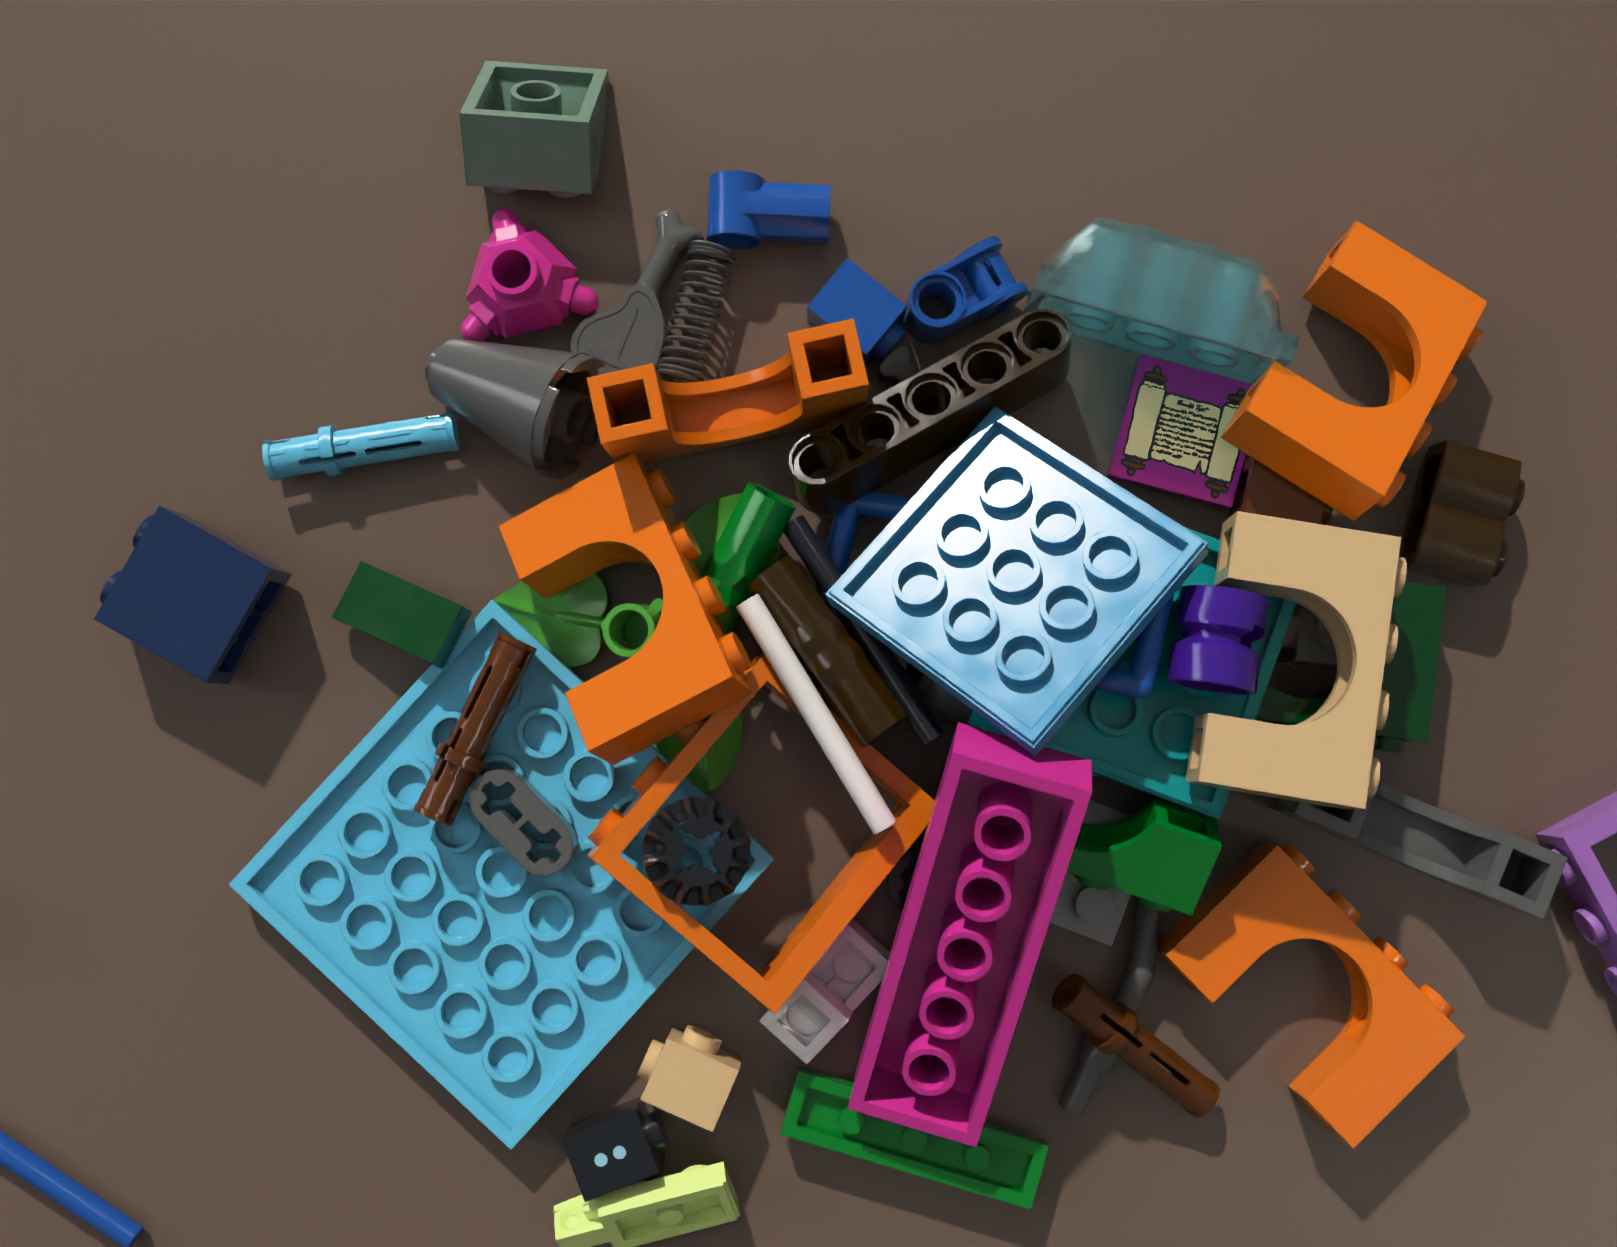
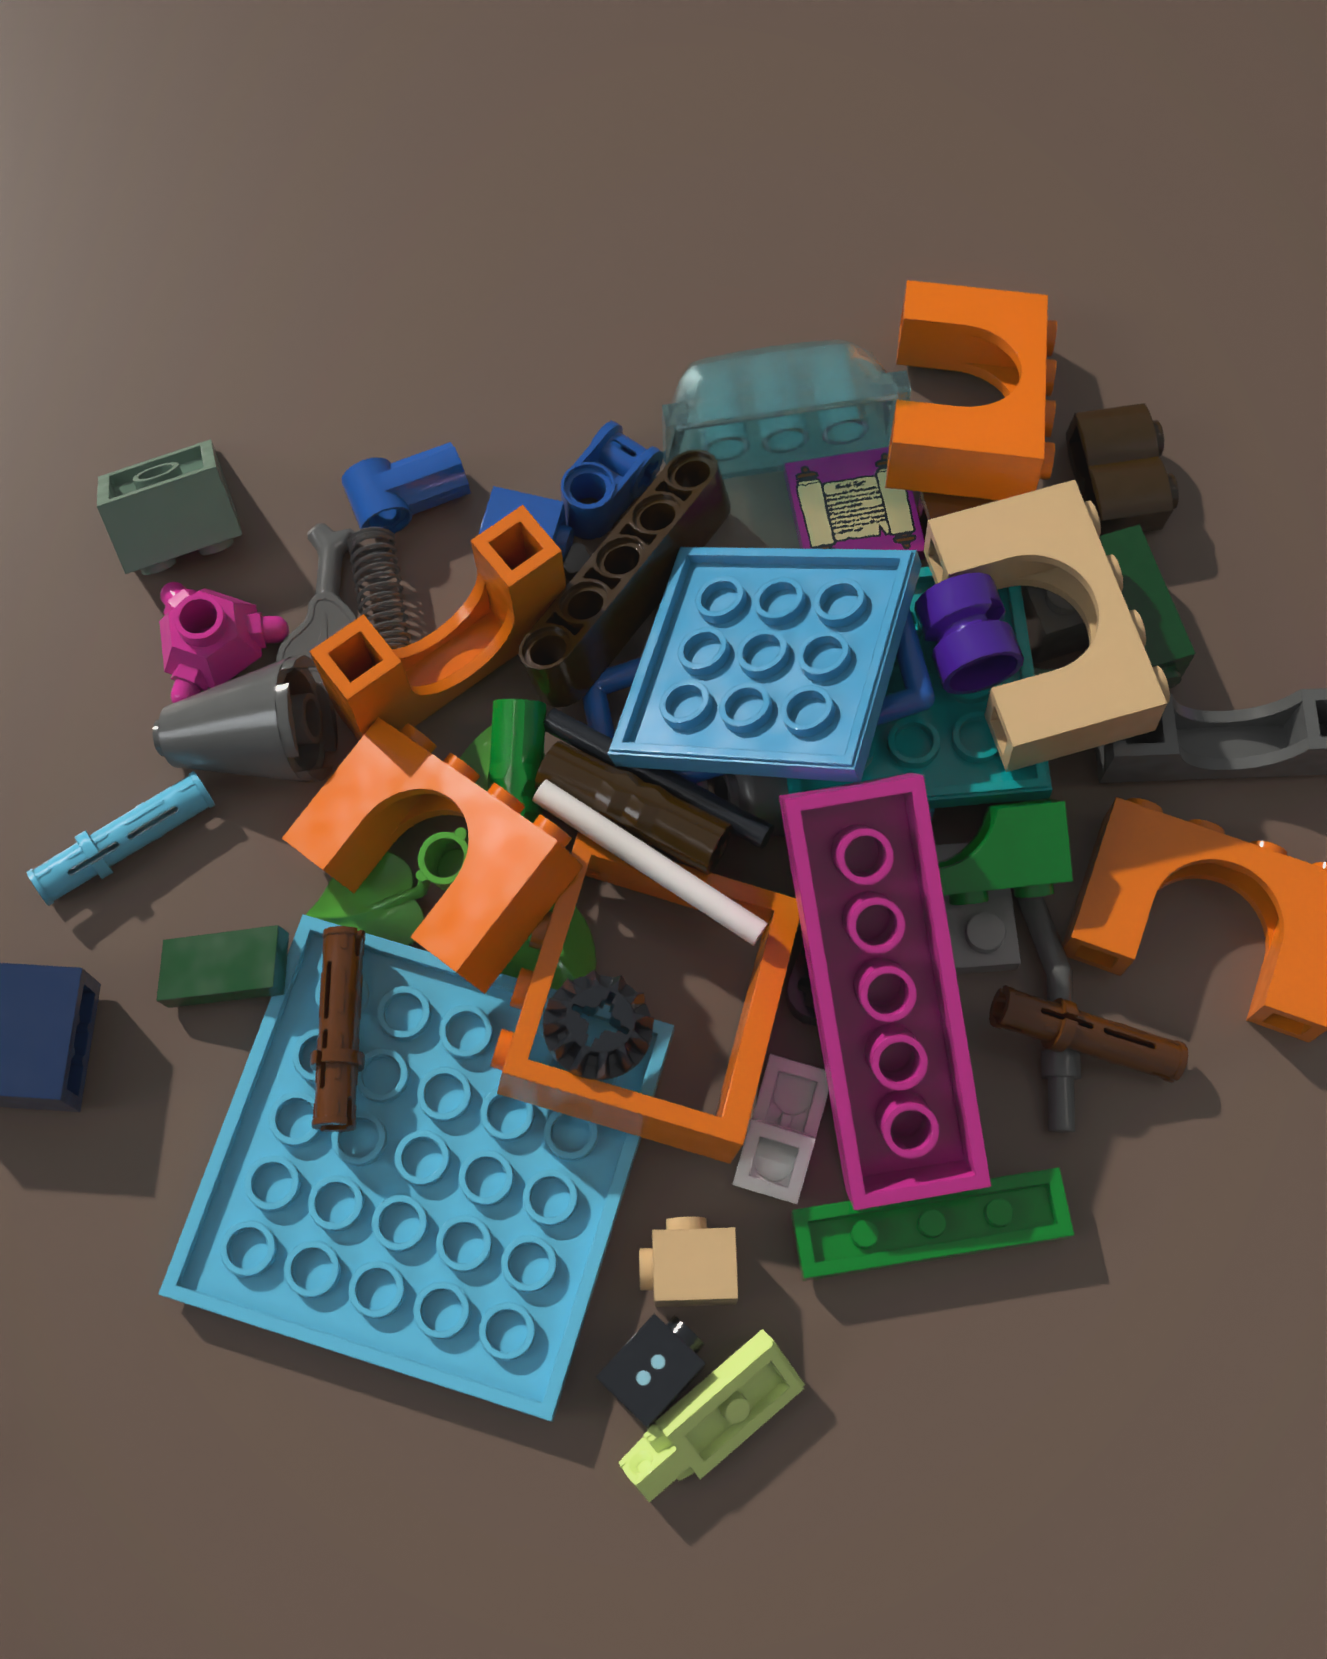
camera: 30 degrees left, 15 degrees down
(511, 832) = (428, 1079): dark grey beam -> none

